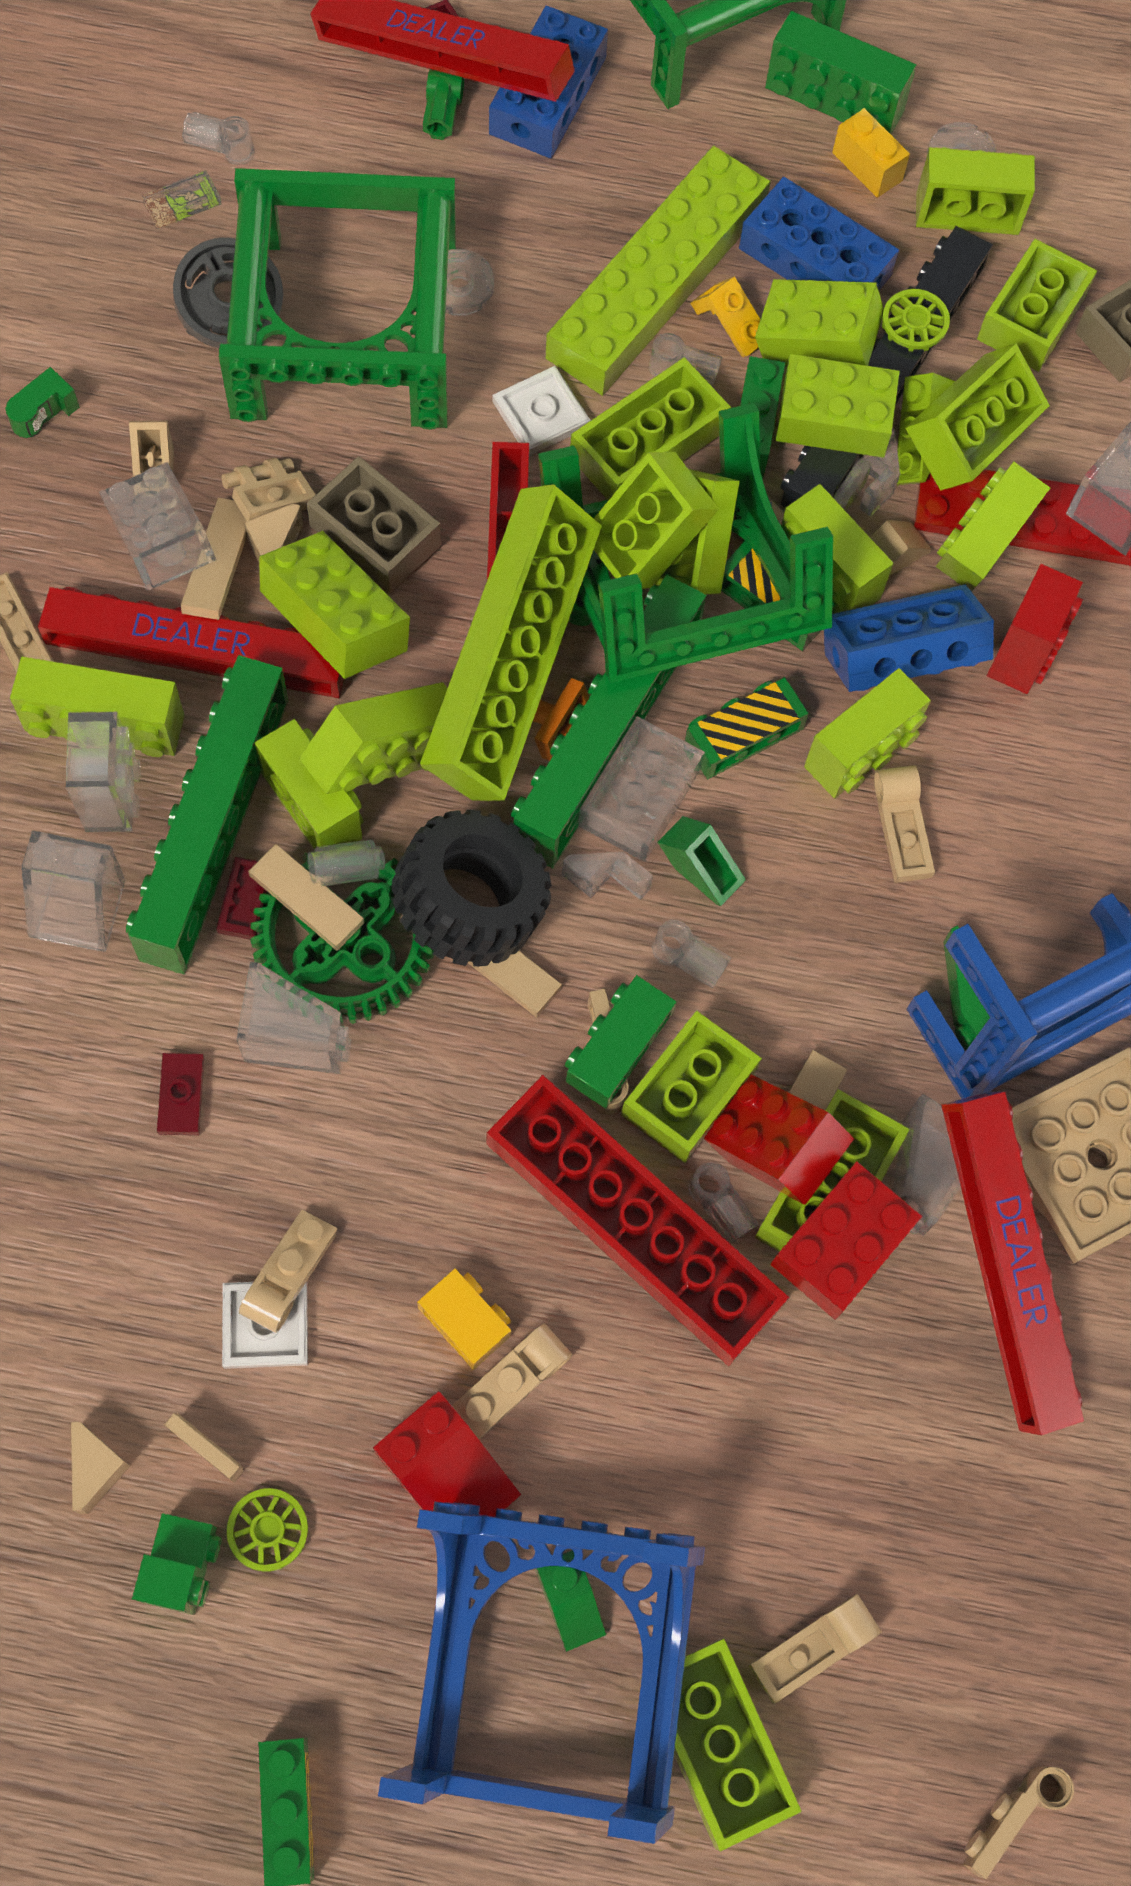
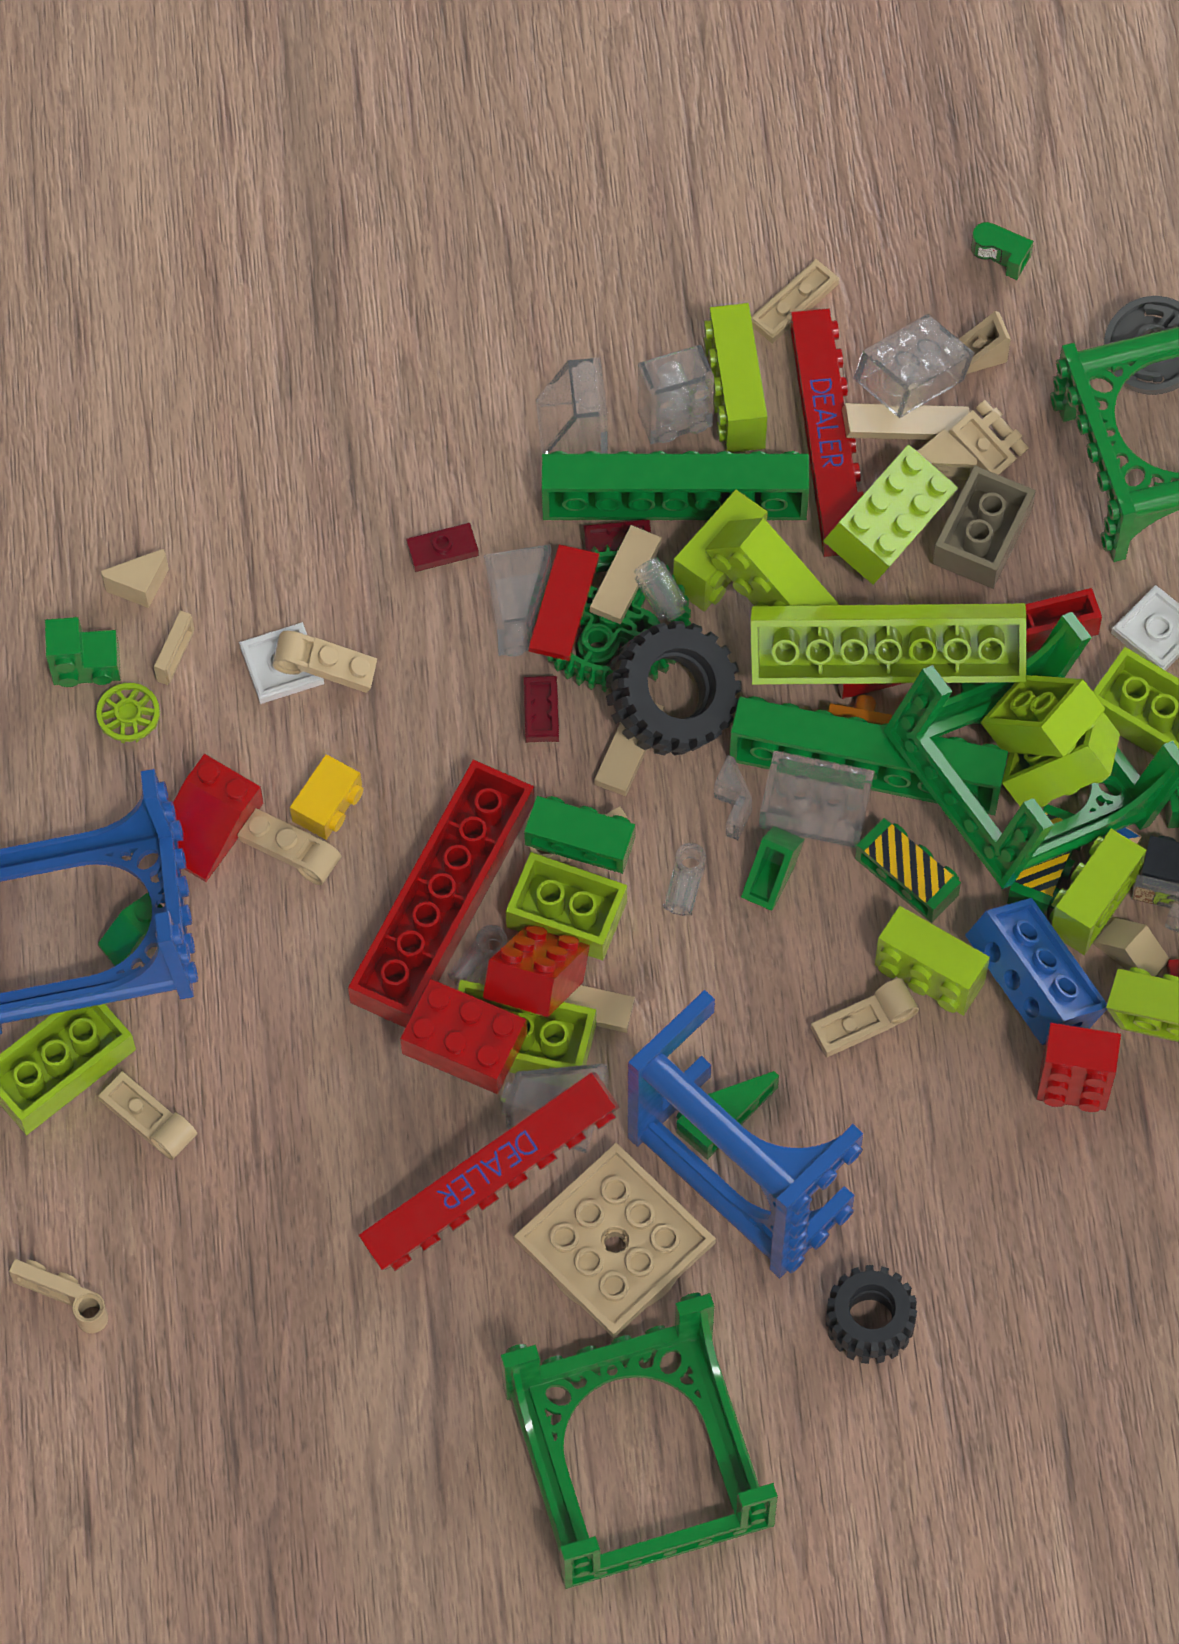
camera: 80 degrees right, 5 degrees down
(318, 973) = (564, 602): none -> red piece
(429, 1044) = (541, 709): none -> dark red plate

